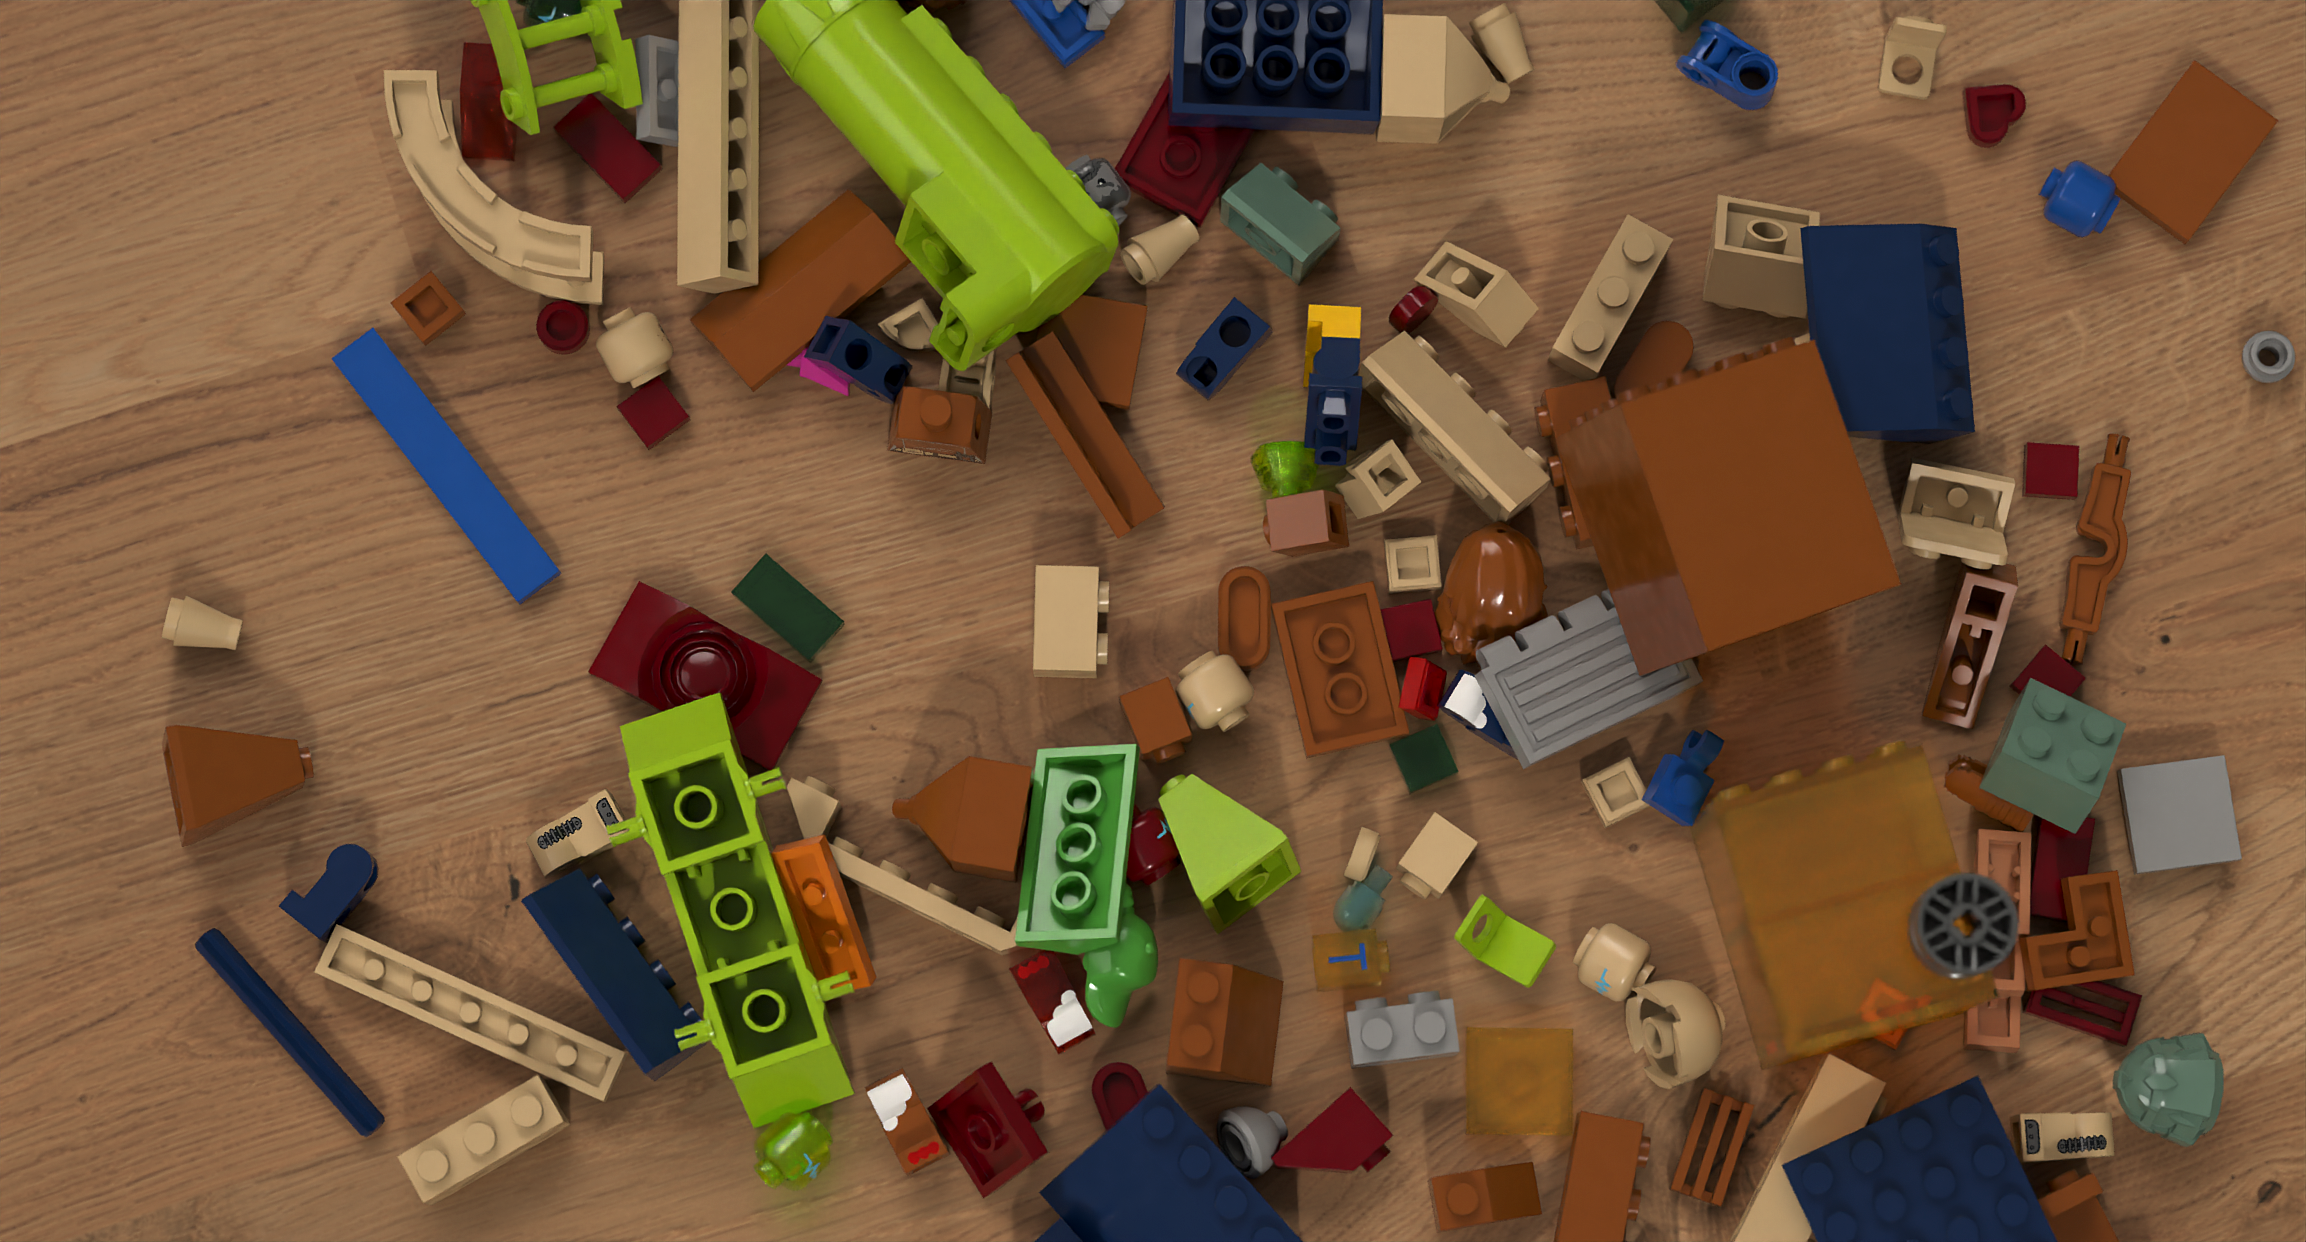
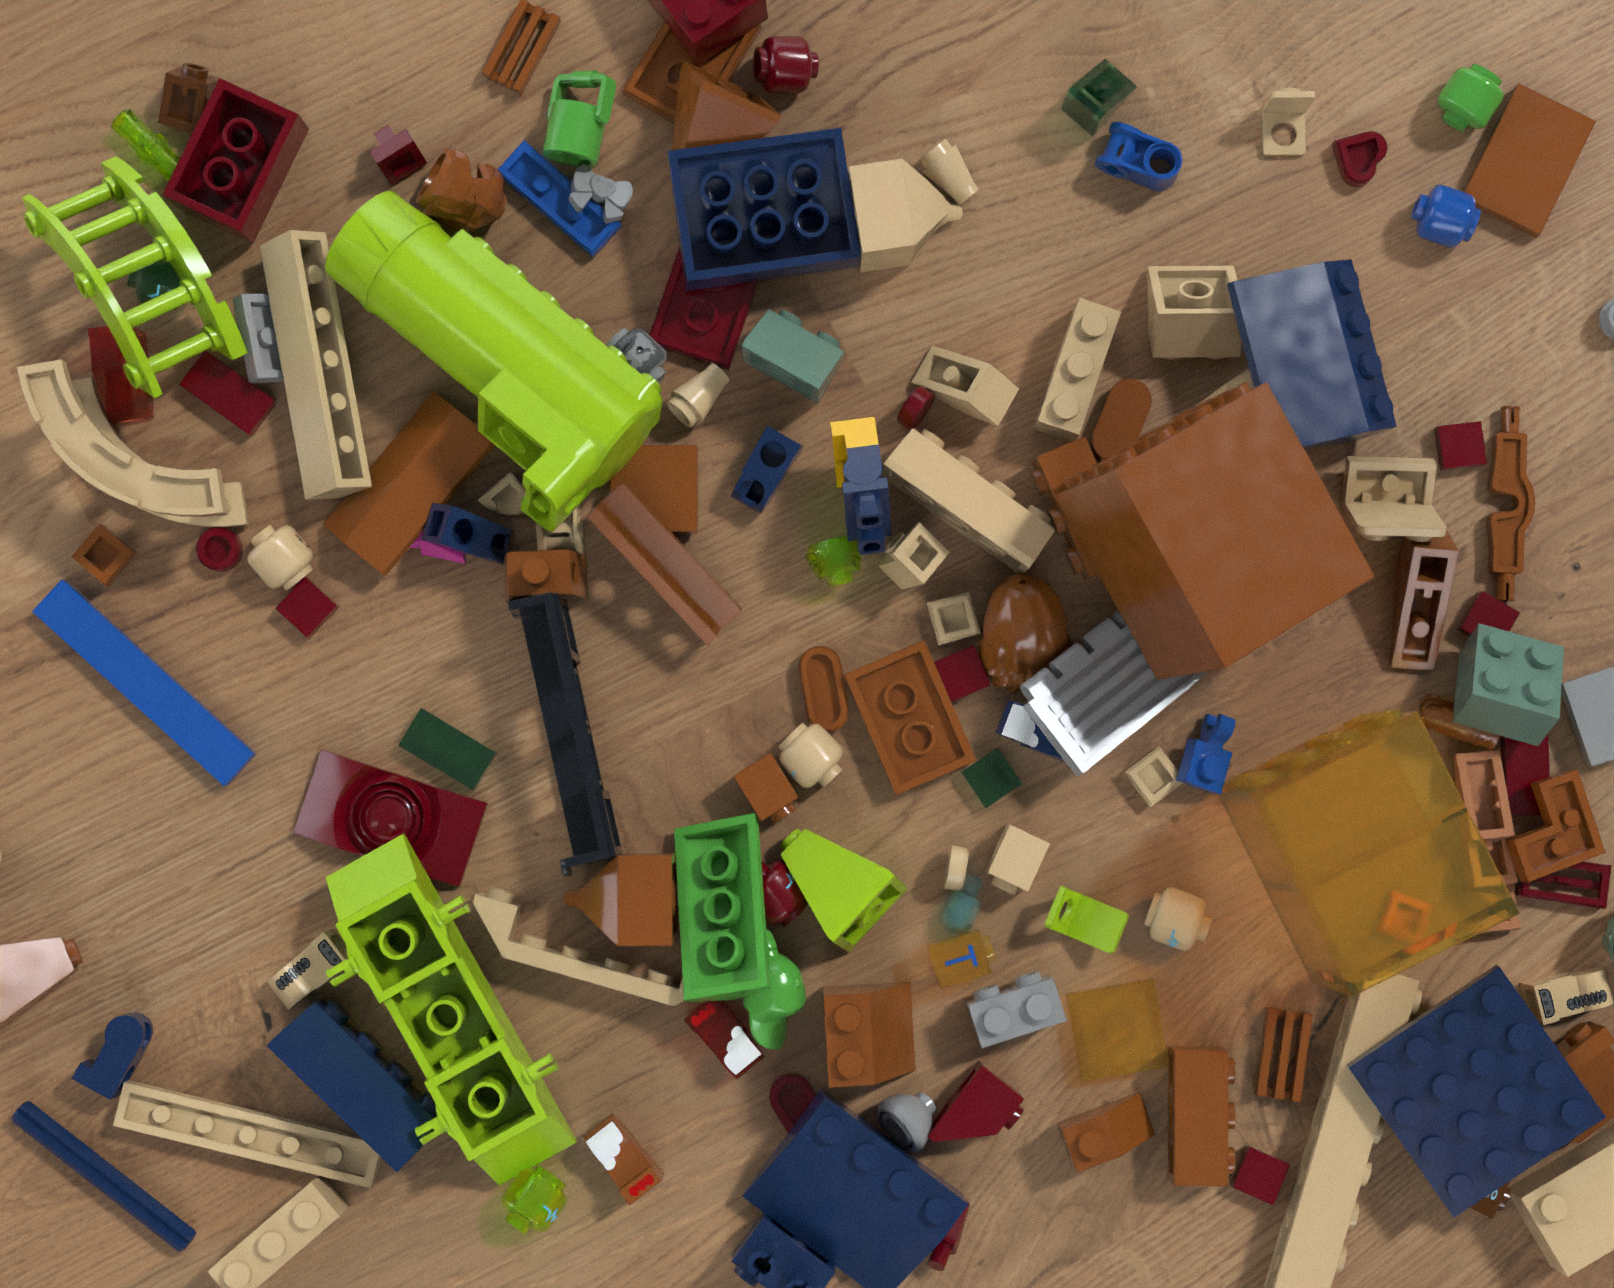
camera: 10 degrees left, 5 degrees up
(823, 911) = (522, 1001): orange plate -> none
(934, 604) = (568, 729): none -> black piece
(990, 1128) = (693, 1153): dark red tile -> none
(1067, 621) = (679, 719): tan brick -> none
(1306, 523) = (860, 602): dark orange brick -> none
(1422, 689) = (981, 722): red tile -> none
(1677, 1029) = (1240, 966): tan cylinder -> none
(1980, 905) = (1498, 883): dark grey wheel -> none
(2133, 67) = (1470, 98): none -> bright green head

